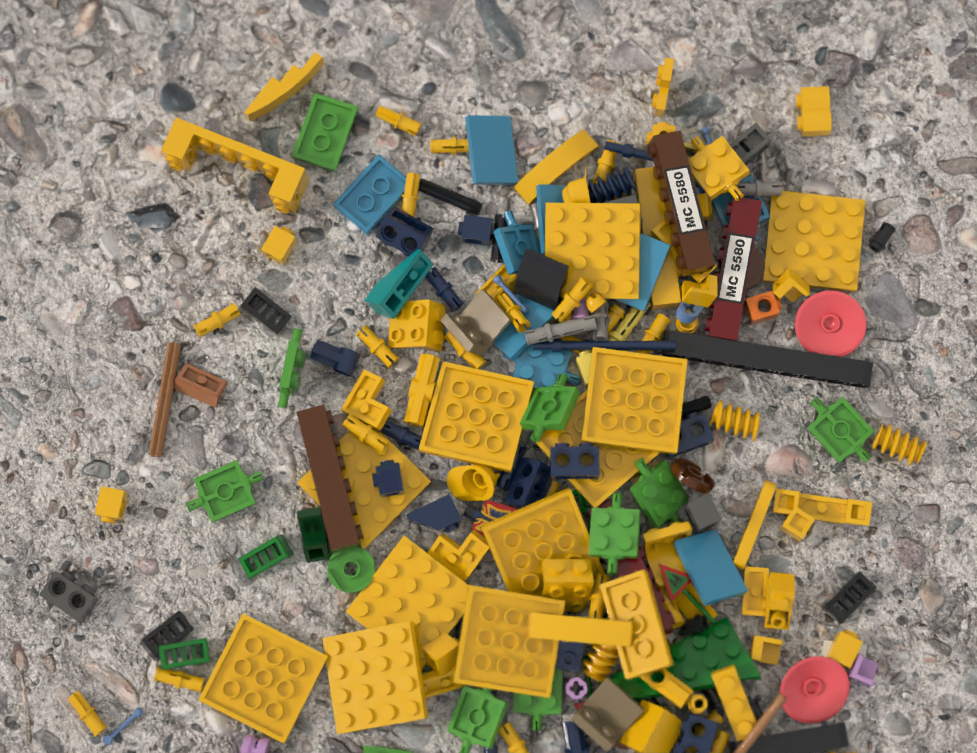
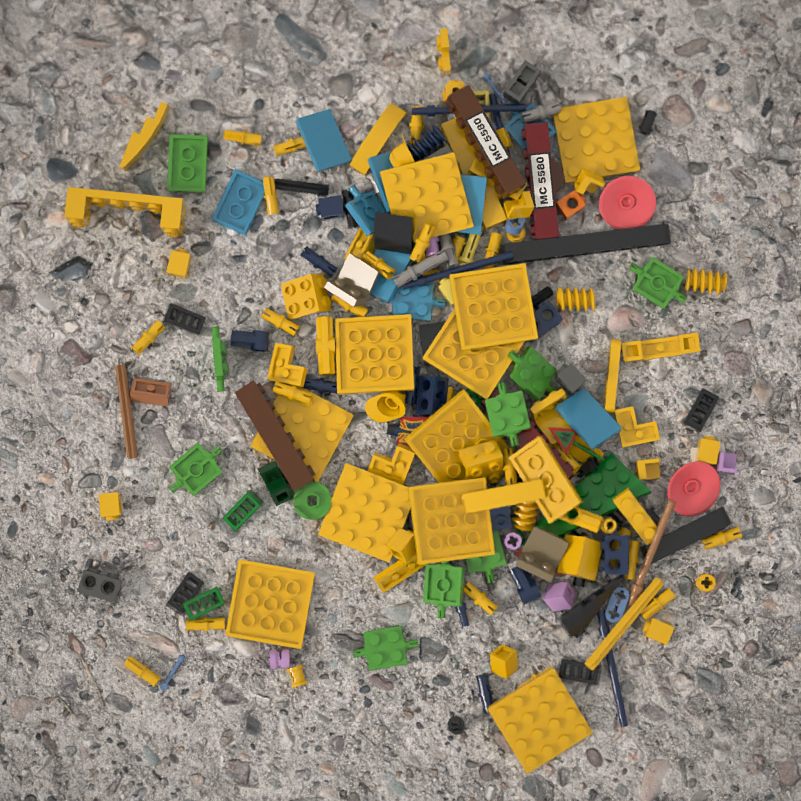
camera: 20 degrees left, 5 degrees up
(375, 677) = (356, 578): yellow plate -> none
(388, 479) = (321, 422): clear blue brick -> none
(398, 285) = (283, 268): teal slope -> none
(406, 229) = (275, 223): dark blue brick -> none
(437, 515) = (367, 440): dark blue slope -> none
(498, 280) = (359, 242): medium blue hinge -> none
(549, 408) = (430, 331): bright green plate -> none
(574, 469) = (463, 374): dark blue brick -> none
(594, 302) = (440, 239): yellow hinge -> none
(690, 475) = (552, 352): reddish brown tile -> none
(717, 168) = (505, 105): yellow plate -> none
(779, 600) = (648, 428): yellow slope -> none
(797, 524) = (645, 365): yellow panel -> none
(814, 111) = (567, 36): yellow brick -> none

